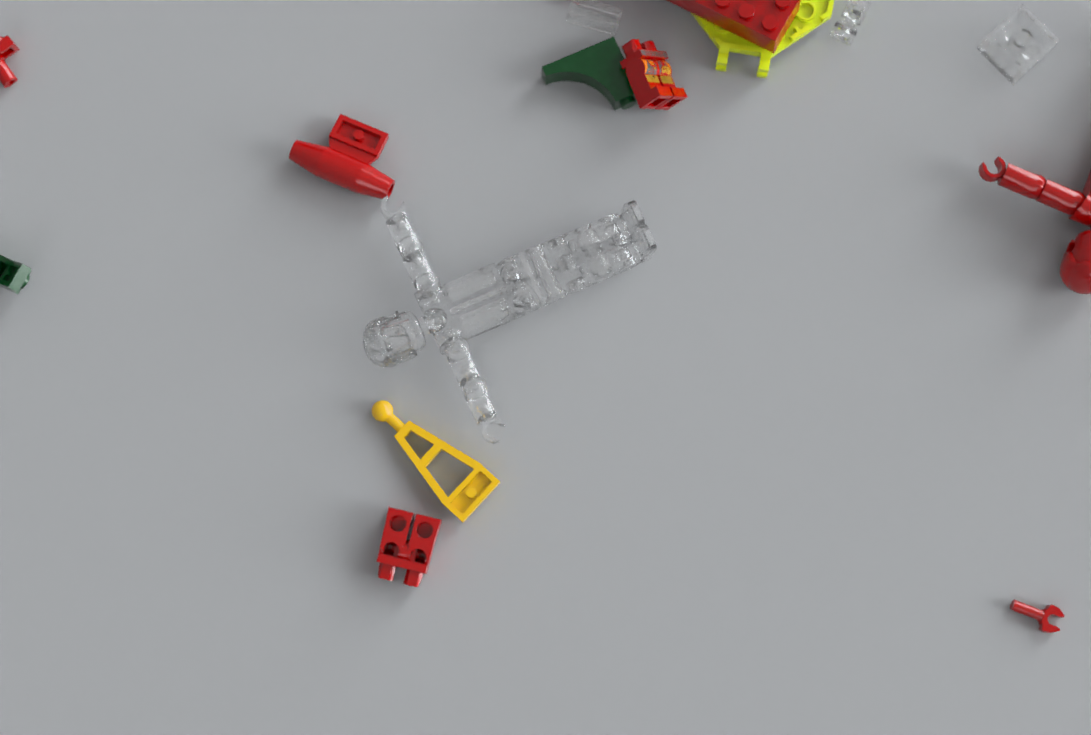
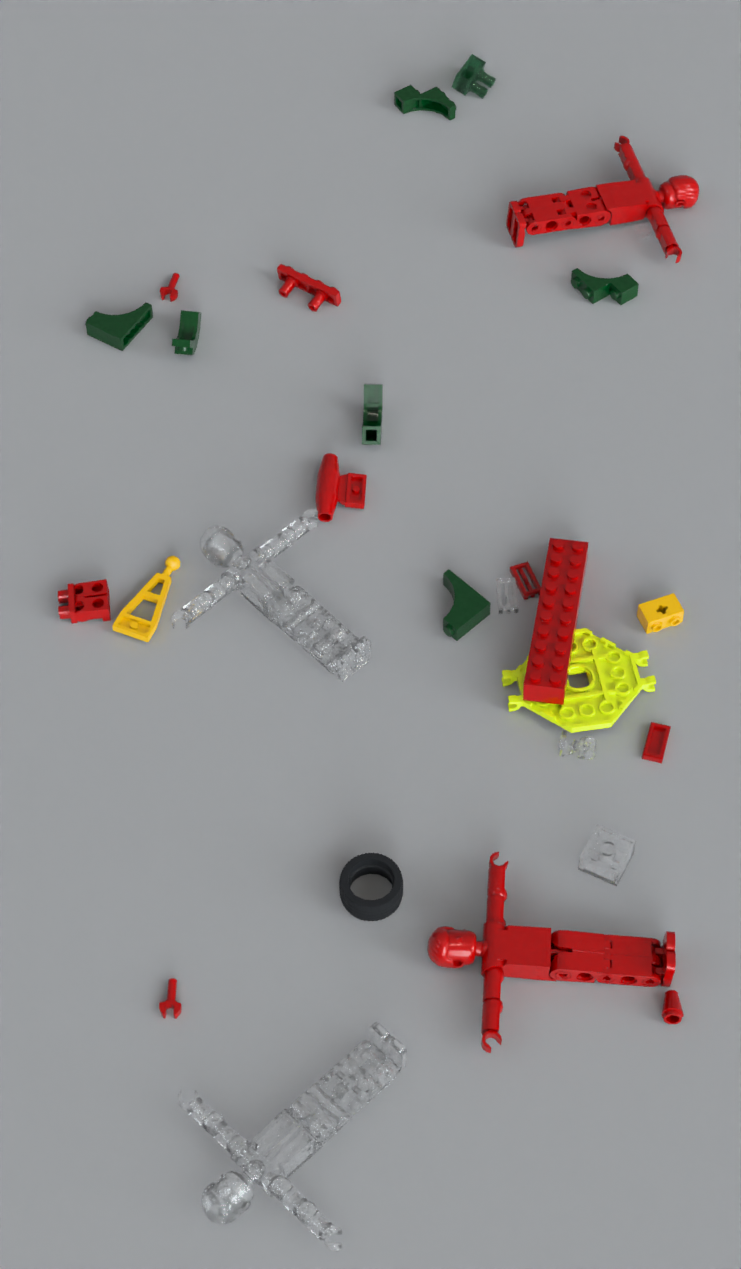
camera: 75 degrees right, 25 degrees down
(254, 76) = (372, 414): none -> dark green arch
(650, 76) = (471, 633): red hips -> none
(993, 305) = (371, 864): none -> black tyre

